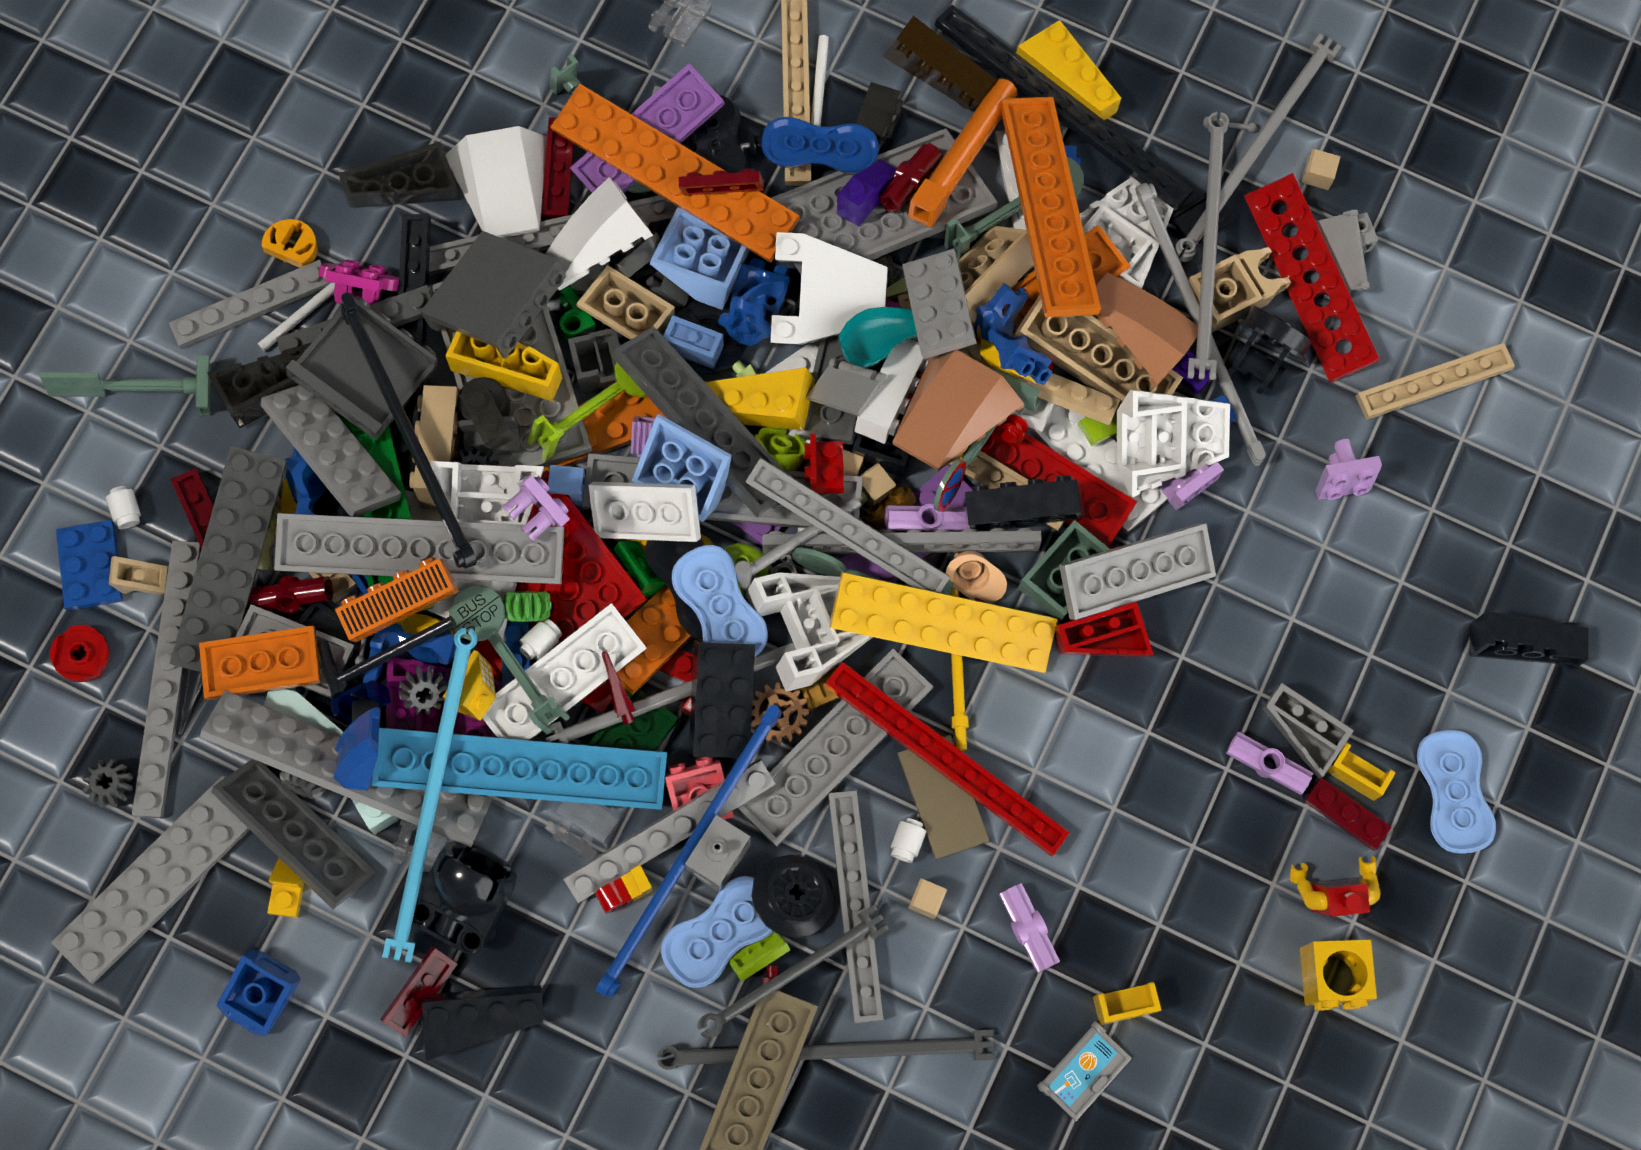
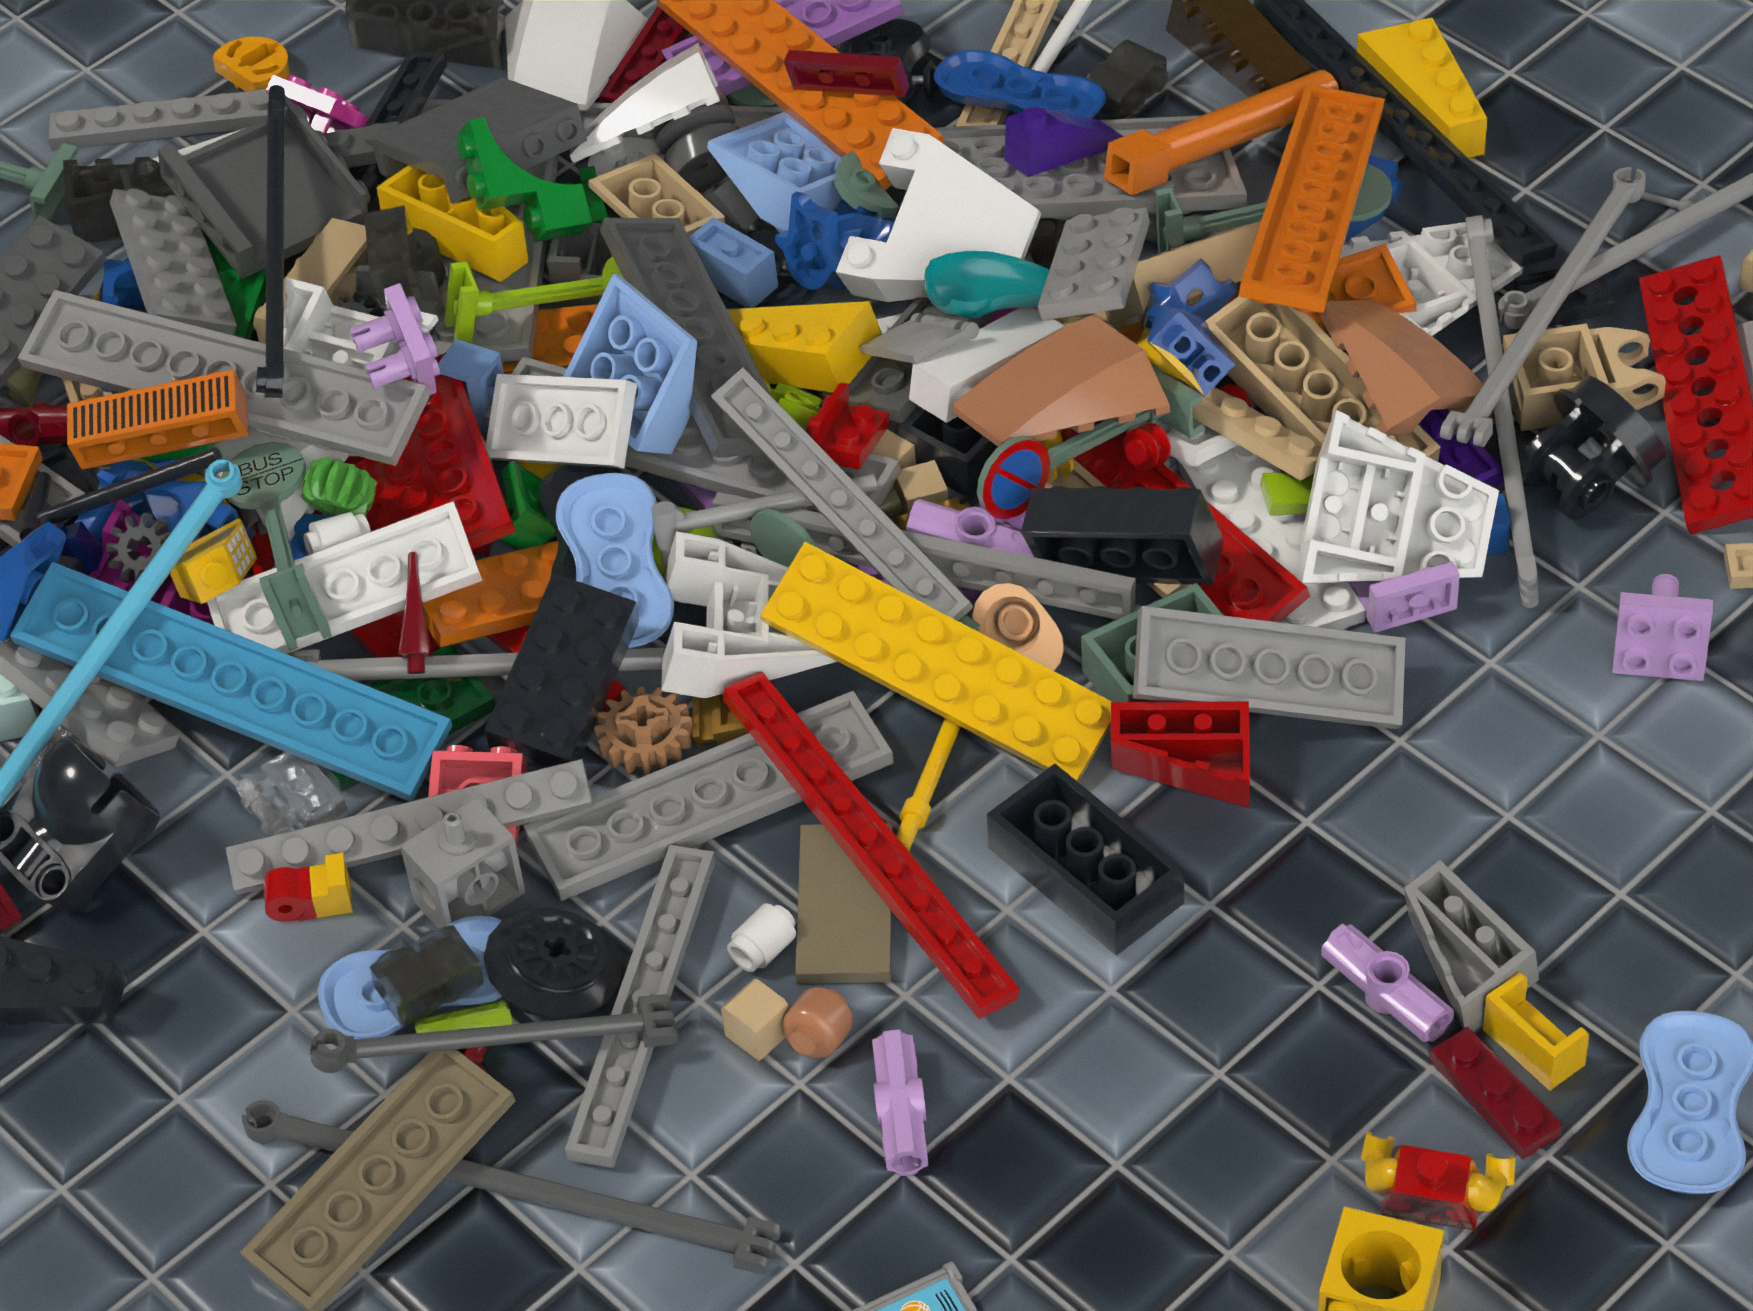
camera: 30 degrees right, 25 degrees down
(534, 344) = (496, 182): none -> green arch
(609, 984) = (224, 999): blue hinge -> none
(729, 935) = (426, 975): none -> clear smoke brick
(756, 265) = (859, 187): none -> sand green plate
(909, 177) = (1091, 149): dark red piece -> none
(963, 890) = (817, 1022): none -> nougat head
(1075, 732) = (1085, 859): none -> black brick
(1127, 1003) = (1010, 1251): yellow panel -> none

